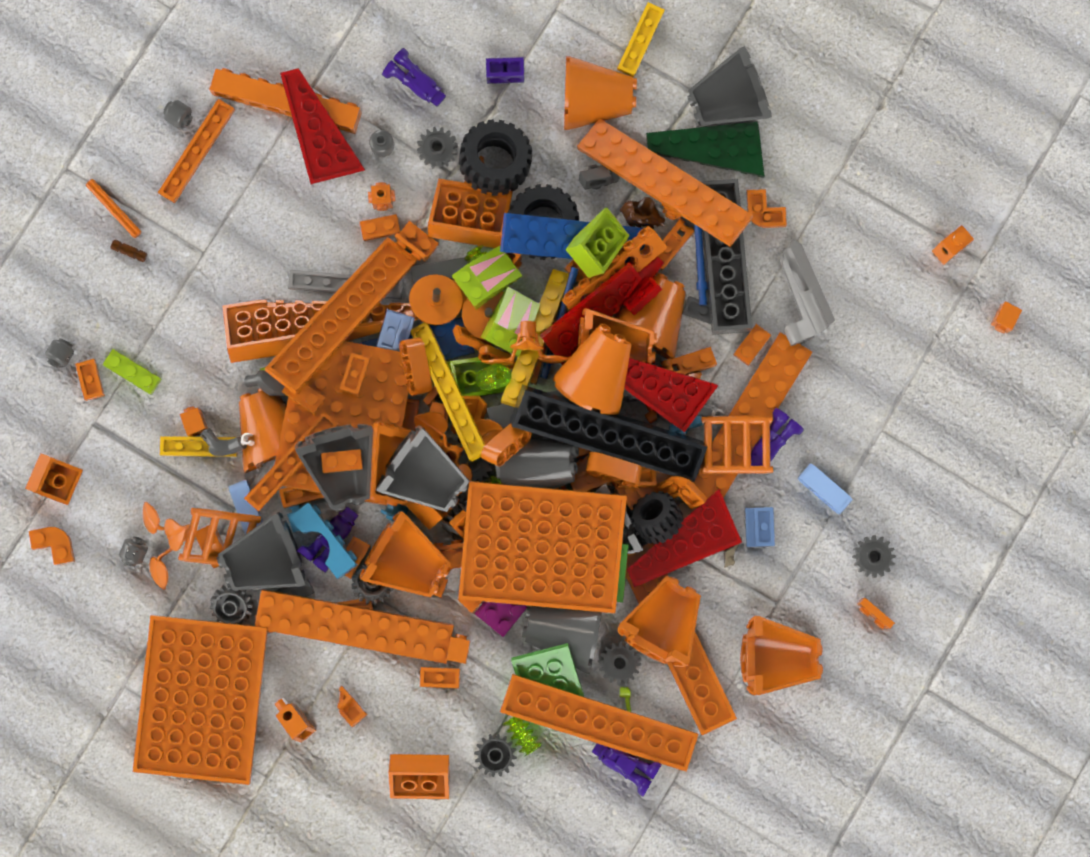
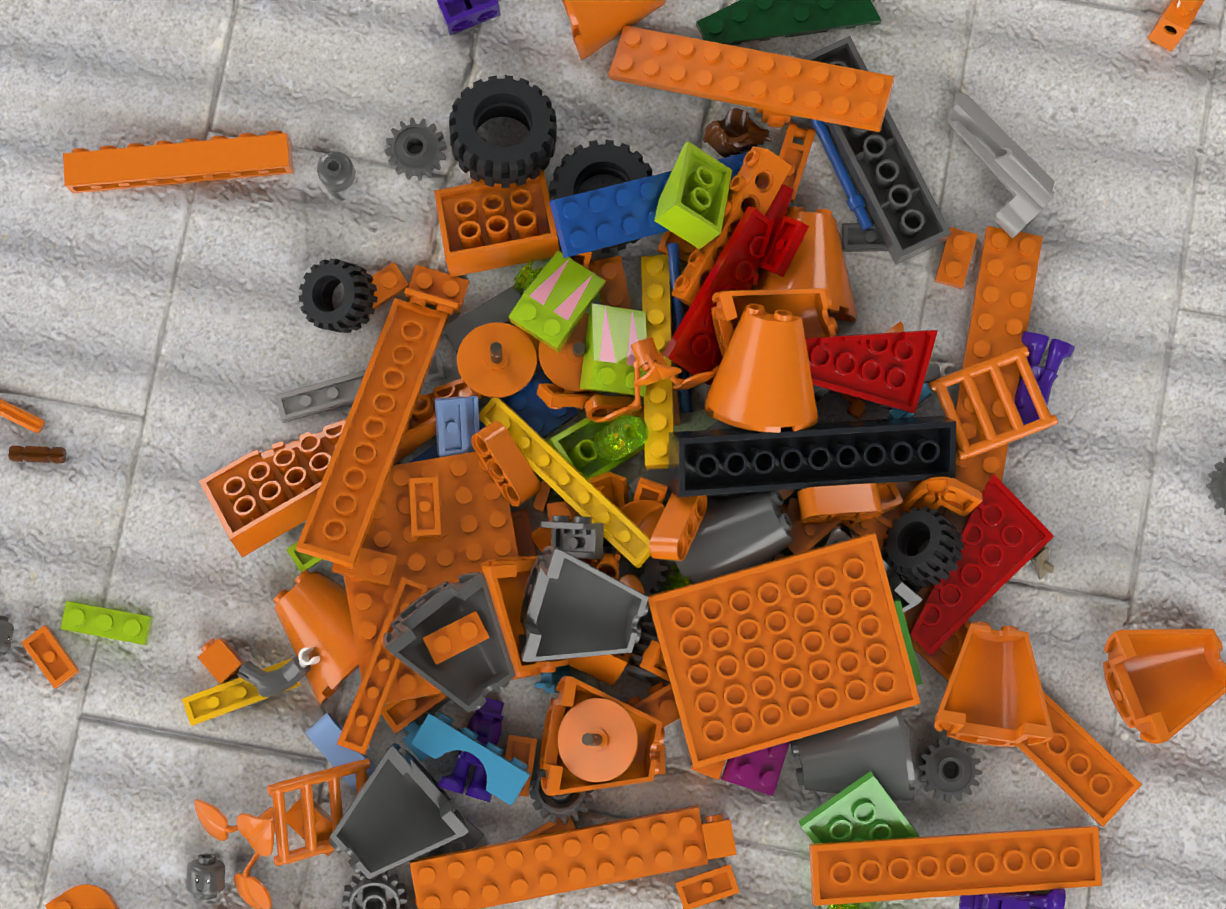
camera: 20 degrees left, 0 degrees up
(54, 479) = (53, 817): orange slope -> none
(177, 114) = (33, 237): dark grey head -> none
(196, 151) = (79, 279): orange plate -> none
(265, 382) = (302, 566): dark grey arm -> none
(320, 140) = (251, 201): red wing -> none
(341, 216) = (318, 294): none -> black tyre
(381, 203) = (371, 252): orange brick -> none
(405, 558) = (597, 740): none -> orange piece
(415, 79) = (348, 65): dark purple piece -> none
(441, 428) = (577, 538): none -> dark grey bracket
(498, 416) = (650, 490): none -> orange slope
(527, 284) = (615, 290): none -> orange plate
(596, 177) = (653, 107): dark grey piece -> none
(625, 693) = (973, 807): lime hand -> none
(692, 362) = (884, 312): orange plate -> none
(759, 527) = (1066, 505): medium blue plate -> none
(763, 216) = (907, 74): orange plate -> none
(825, 489) = (1135, 418): light blue beam -> none

